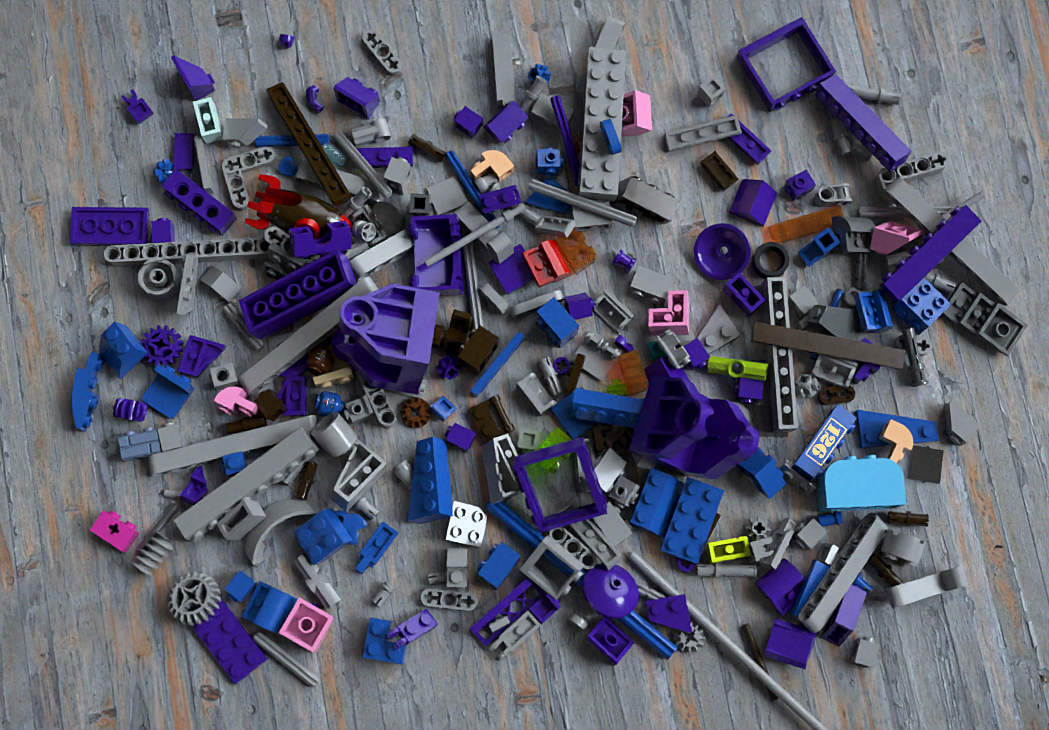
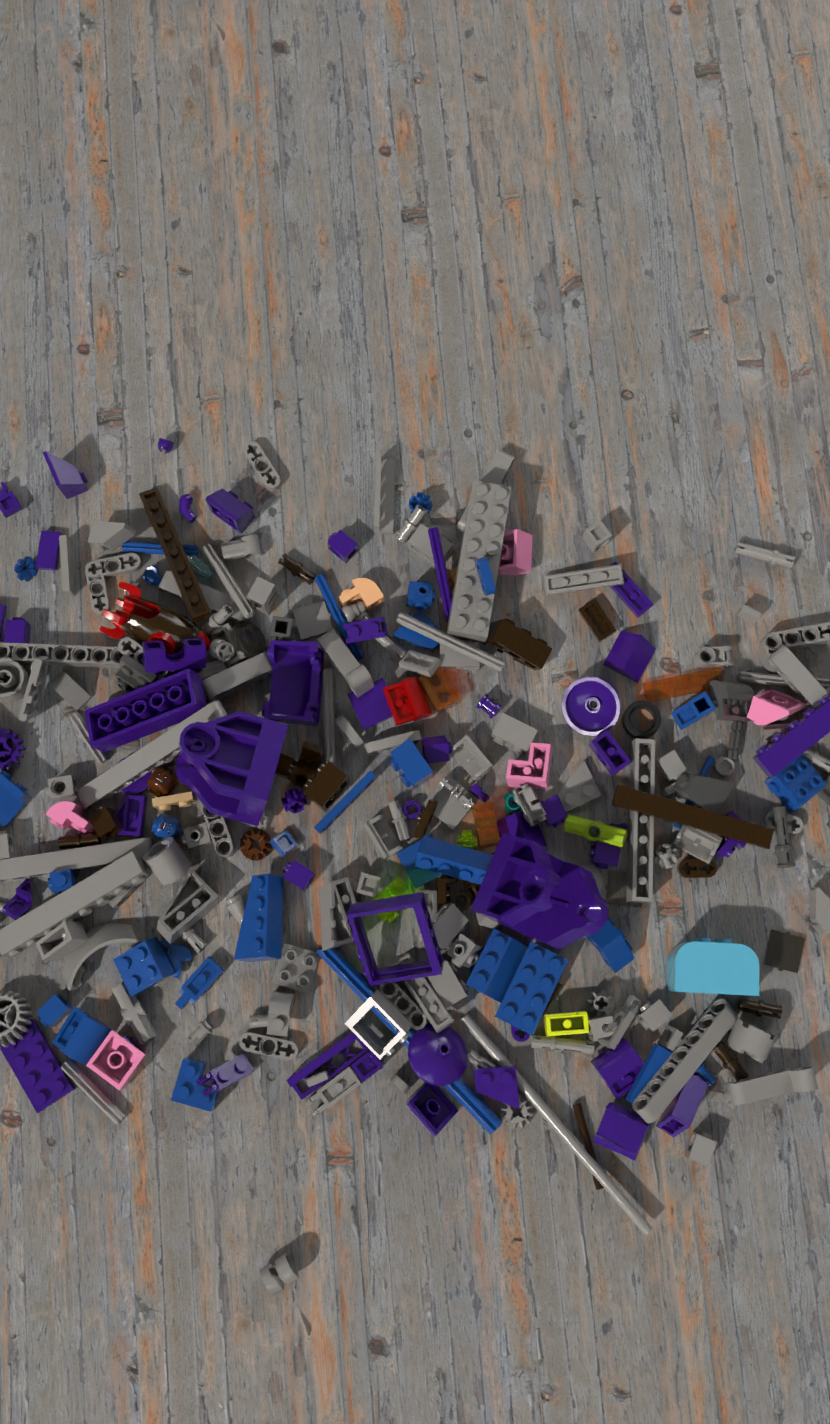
camera: 10 degrees right, 0 degrees up
(177, 182) = (36, 583): dark purple brick -> none
(199, 355) = (39, 763): dark purple wing -> none
(208, 120) = (75, 520): light aqua brick -> none
(306, 480) = (135, 904): dark brown axle -> none
(381, 156) = (247, 573): dark purple plate -> none
(485, 422) = (326, 860): dark brown plate -> none
(499, 565) = (323, 1016): blue brick -> none
(506, 122) = (380, 550): dark purple brick -> none
(506, 216) = (370, 648): light grey bar -> none
(796, 479) = (654, 959): light grey hinge -> none
(797, 26) = (694, 476): dark purple window -> none
(799, 185) = (679, 643): dark purple brick -> none
(824, 442) = (678, 919): brick -> none
(830, 519) = (677, 1000): blue pin -> none
(841, 137) = (728, 596): light grey pin -> none
(863, 123) = (752, 584): dark purple brick -> none
(871, 425) = (750, 911): blue wing -> none
(873, 311) = (744, 784): blue brick -> none
(898, 437) = (758, 921): light nougat brick -> none

